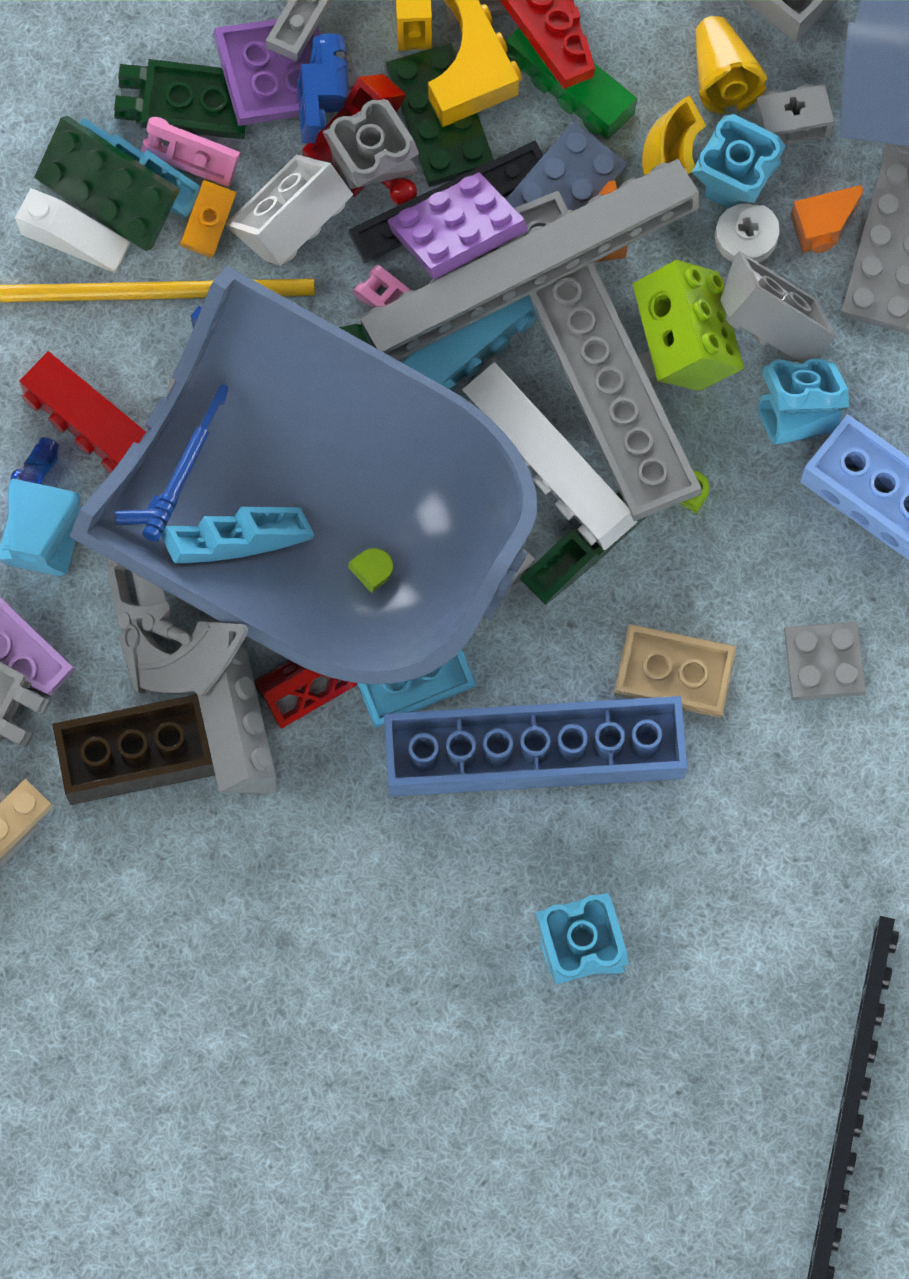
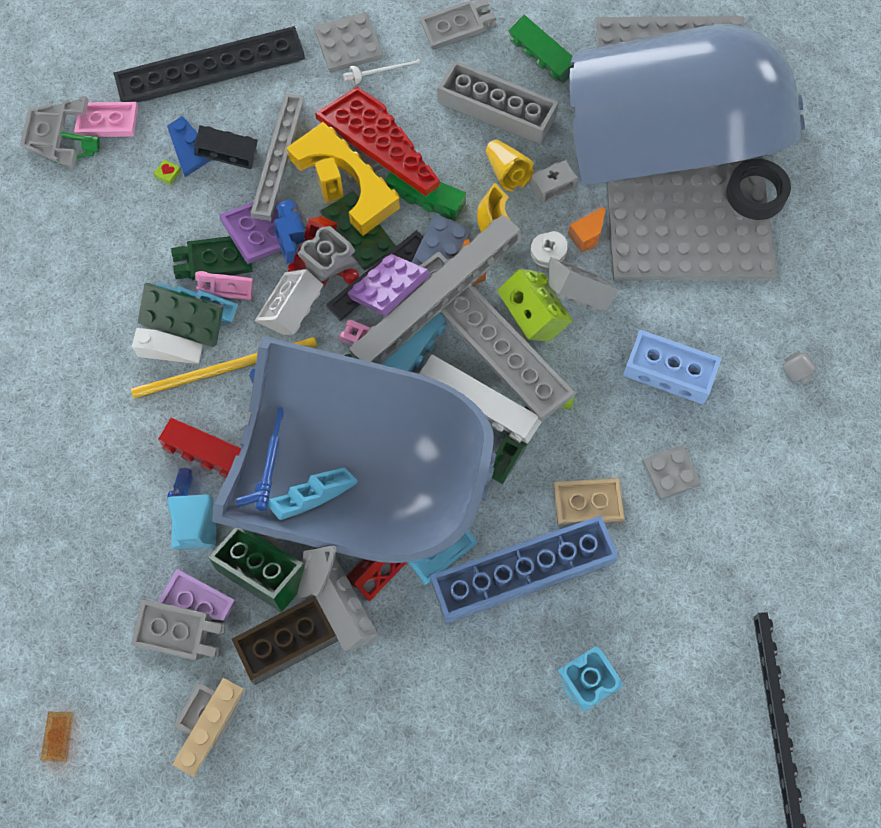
camera: 15 degrees left, 5 degrees down
(122, 627) = (258, 567): none -> dark green slope
(207, 219) = (244, 319): light orange plate -> none
(372, 568) = (397, 491): lime tile -> none
(738, 161) = (532, 211): medium azure piece -> none
(803, 399) = (611, 329): medium azure piece -> none

